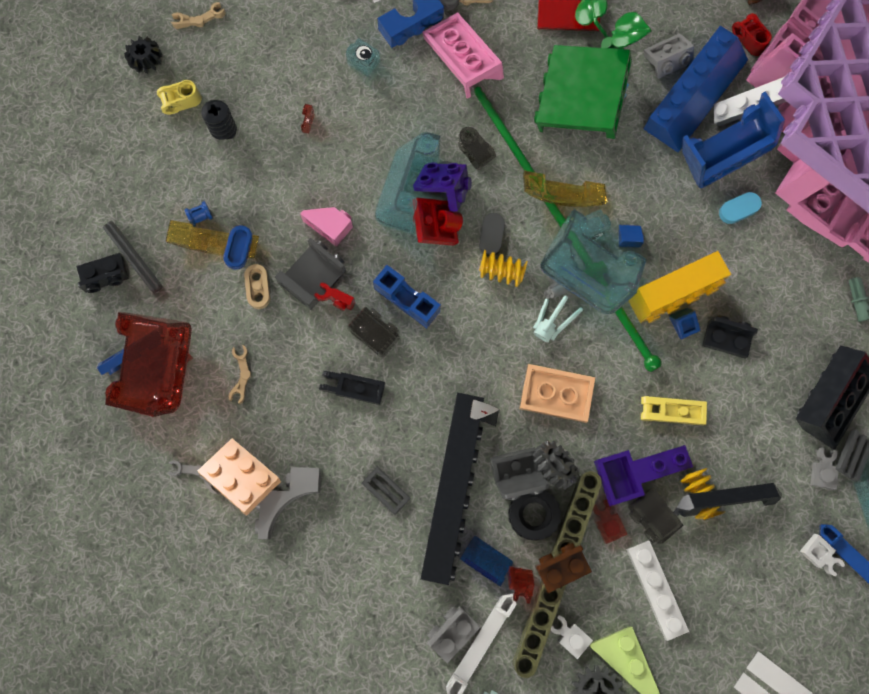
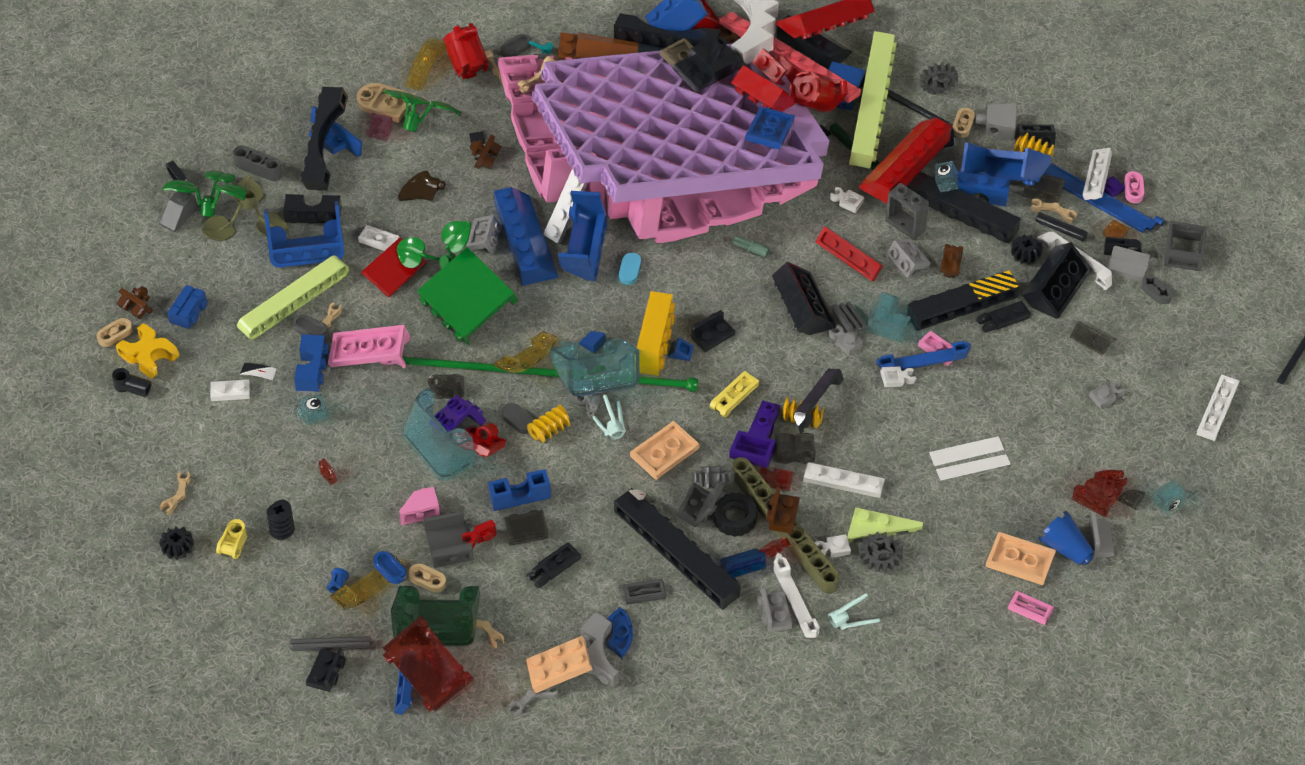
camera: 50 degrees left, 25 degrees down
(218, 326) = (450, 620): none -> clear green windscreen
(325, 502) = (621, 632): none -> blue tile
(753, 34) = (516, 178): red piece -> none

